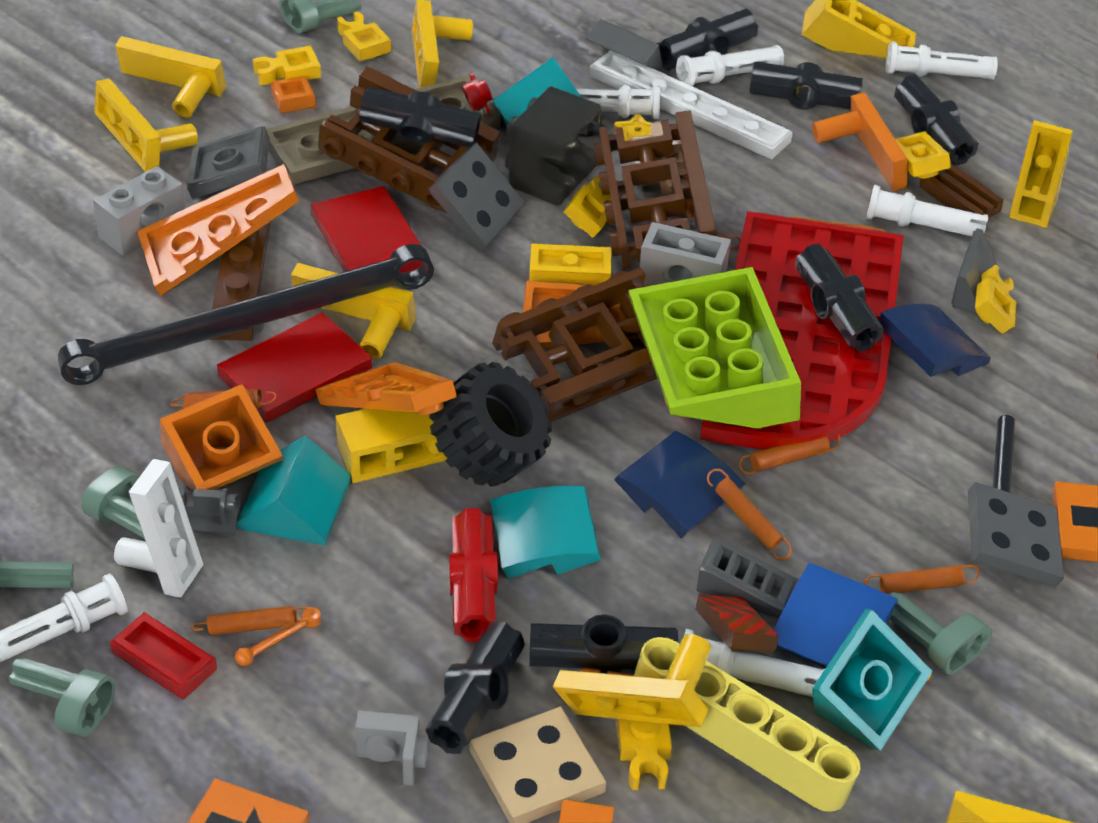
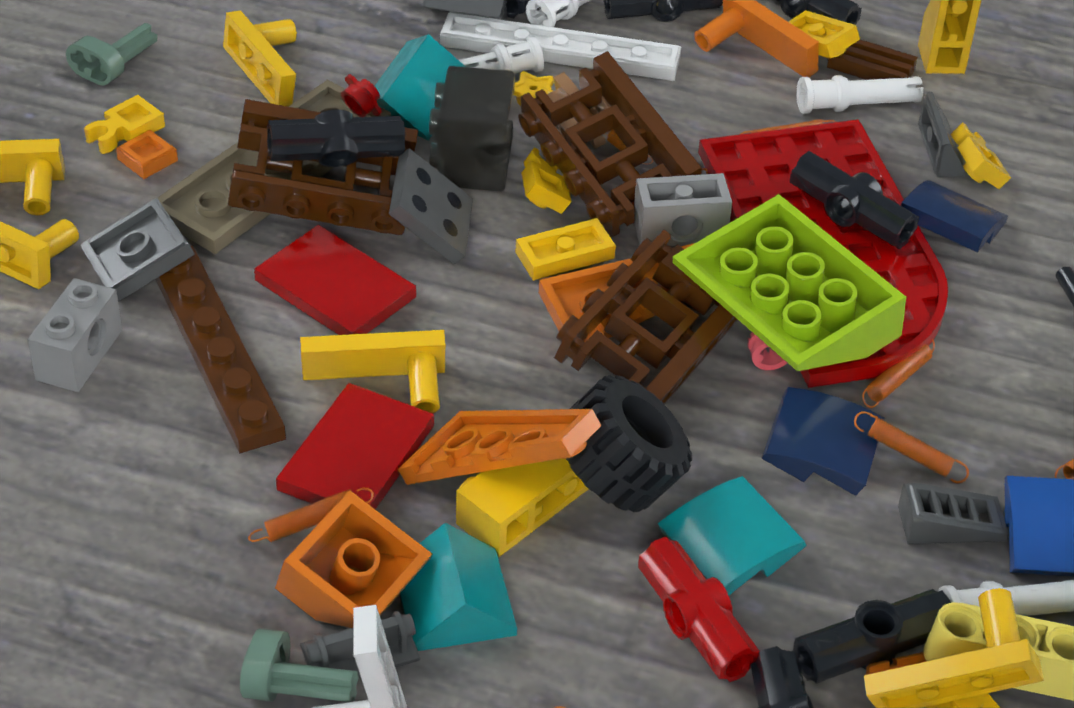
camera: 25 degrees left, 0 degrees up
(206, 230) = (171, 332): orange wing -> none
(244, 314) = (275, 418): black piece -> none
(363, 40) = (184, 72): yellow plate -> none
(737, 623) = (983, 562): reddish brown tile -> none

